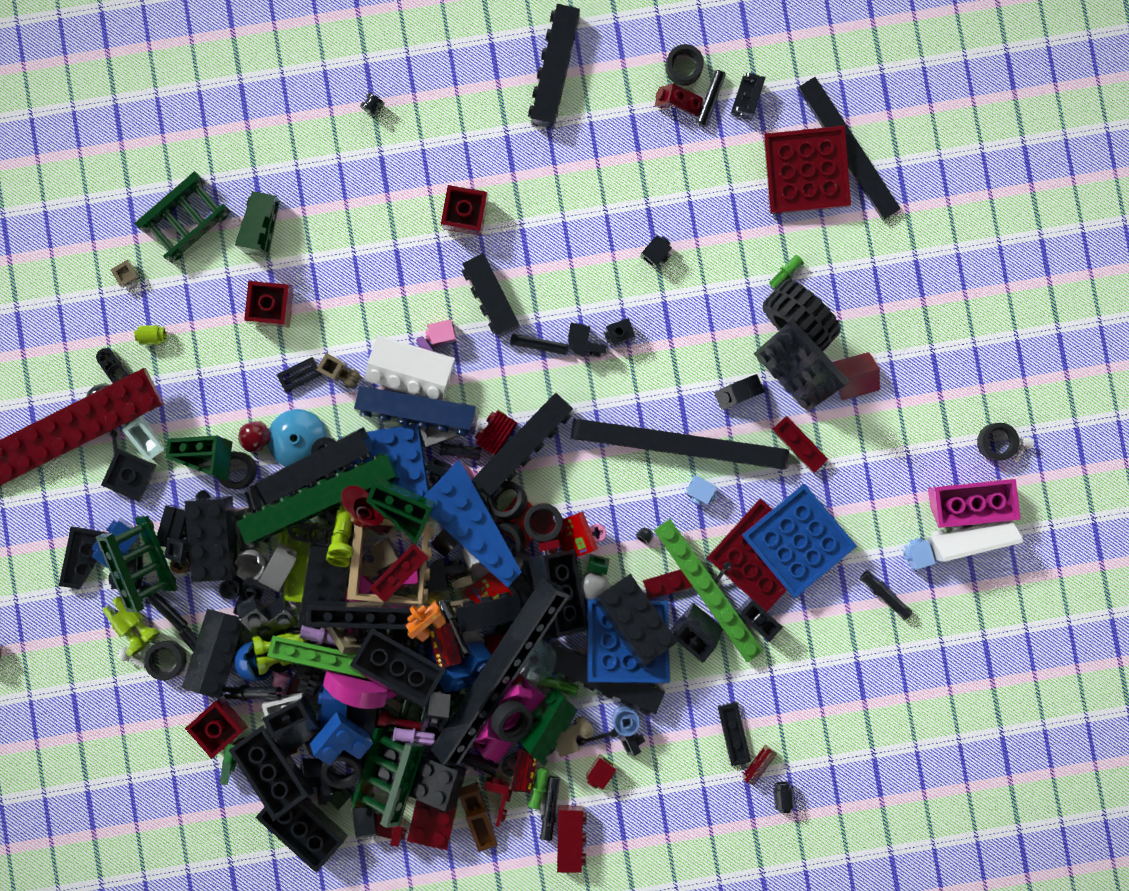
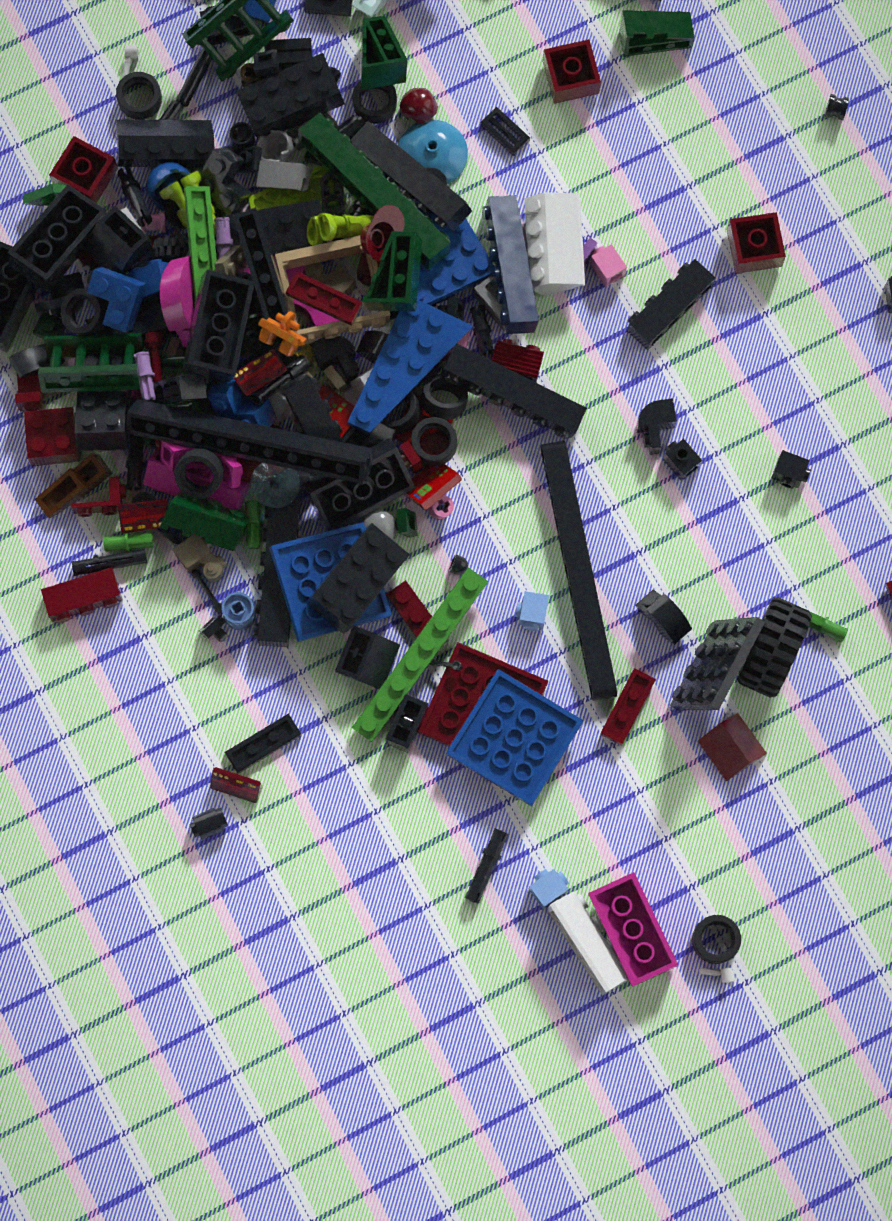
camera: 70 degrees right, 10 degrees down
(123, 625) = (165, 39): lime piece -> none
(338, 371) = (524, 168): dark tan brick -> none
(539, 344) = (635, 376): black axle -> none
(600, 772) = (169, 604): dark red brick -> none

